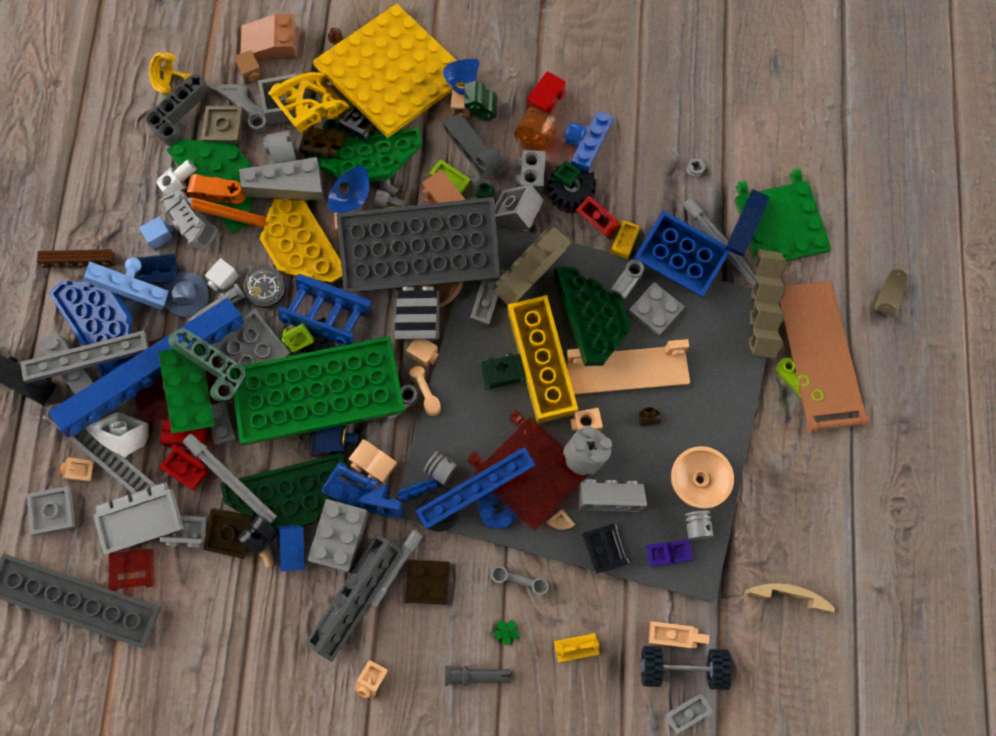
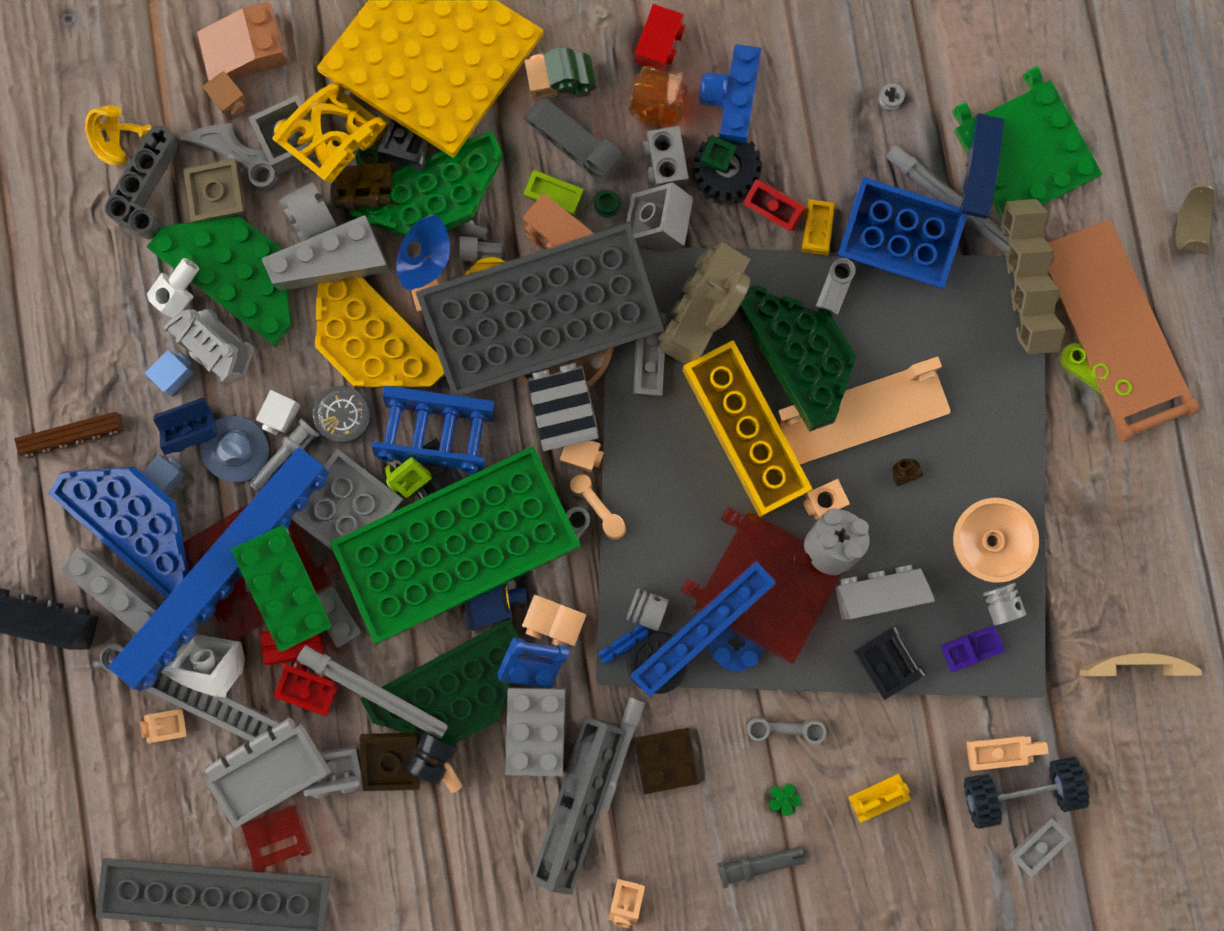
camera: 10 degrees left, 10 degrees up
(50, 510) = (146, 788): light grey plate -> none
(84, 356) = (130, 576): light grey plate -> none
(125, 284) = (153, 461): light blue plate -> none
(205, 362) = (298, 546): sand green beam -> none
(215, 189) = (234, 293): orange piece -> none
(229, 213) = (263, 322): orange axle -> none
(291, 547) = (478, 761): blue hinge -> none
(335, 36) = (336, 19): reddish brown plate -> none
(378, 503) = (575, 676): blue slope -> none
(461, 71) = (532, 32): blue piece -> none
(494, 378) = (712, 456): clear green brick -> none
(560, 521) = (821, 640): tan tile -> none
(656, 309) = (883, 318): light grey plate -> none

